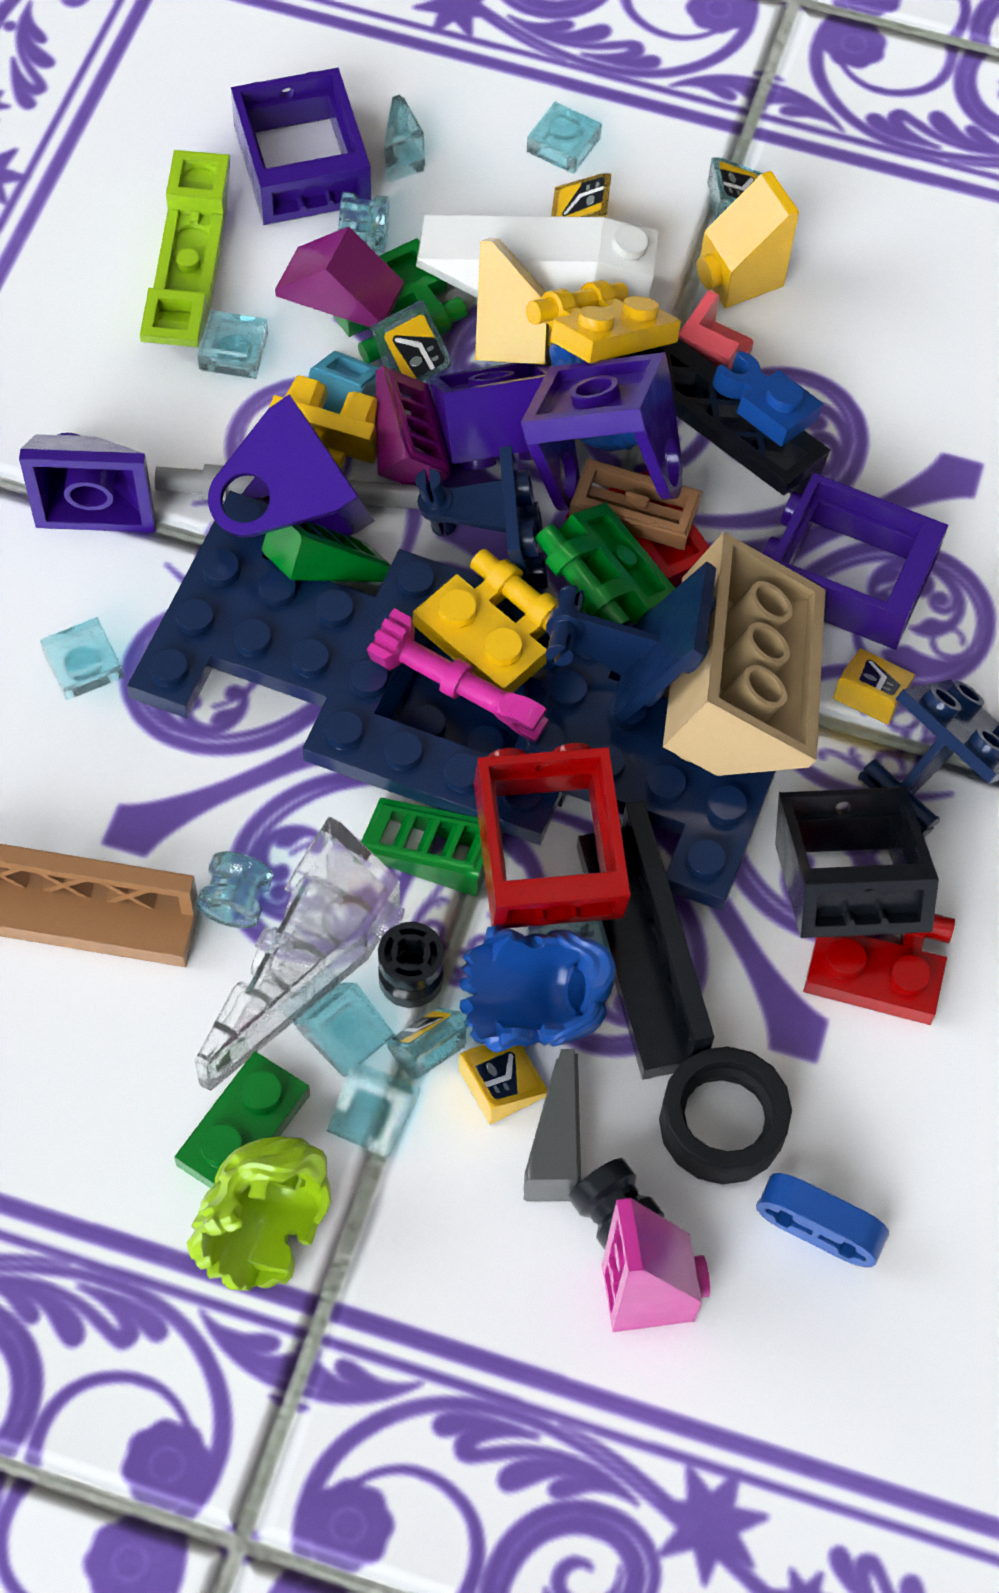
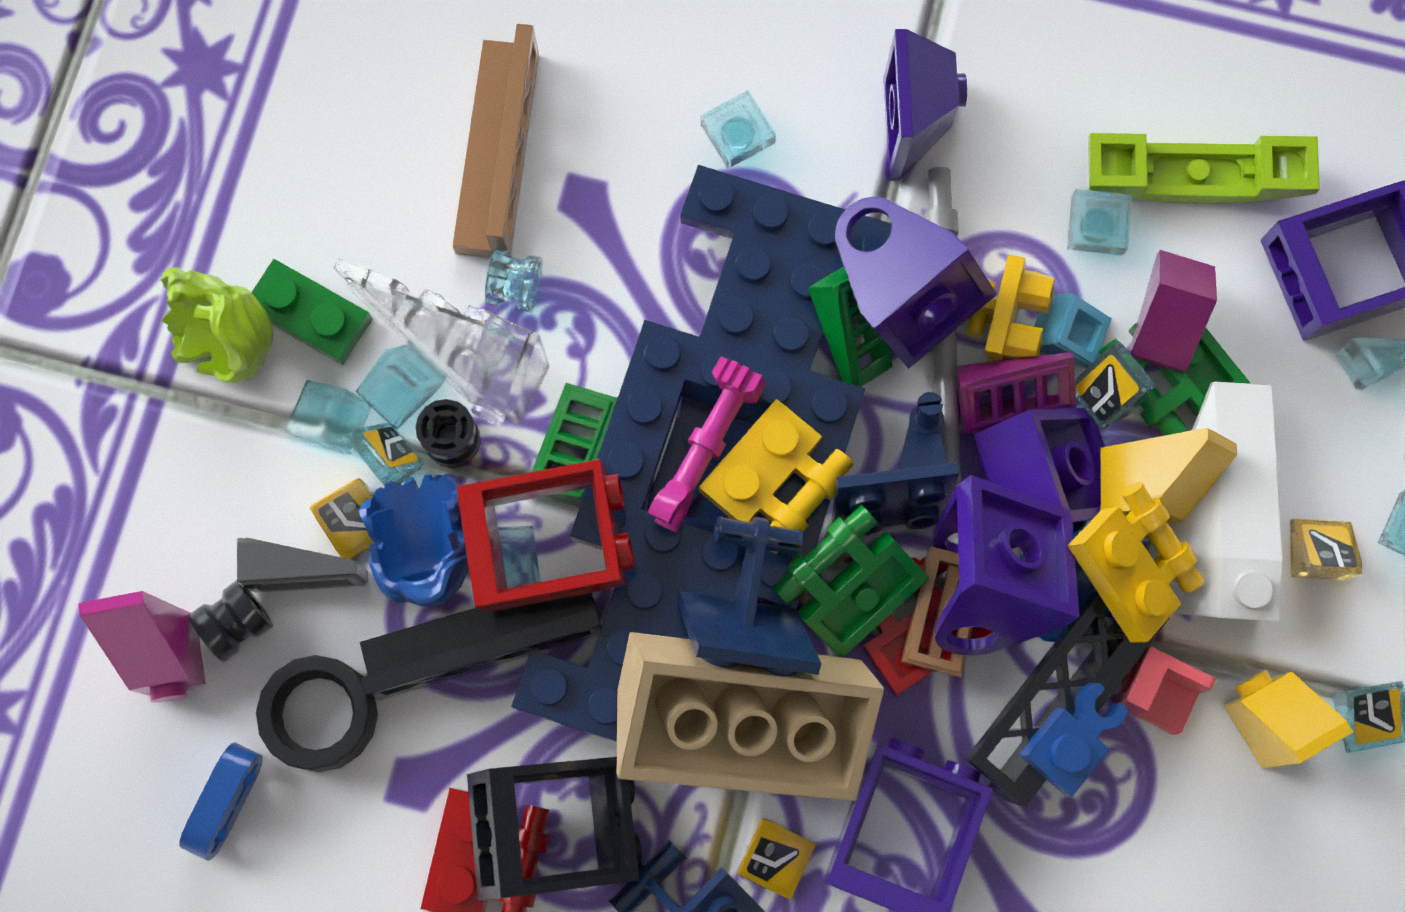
camera: 90 degrees right, 15 degrees up
(366, 218) = (1265, 330): clear light blue wheel -> none

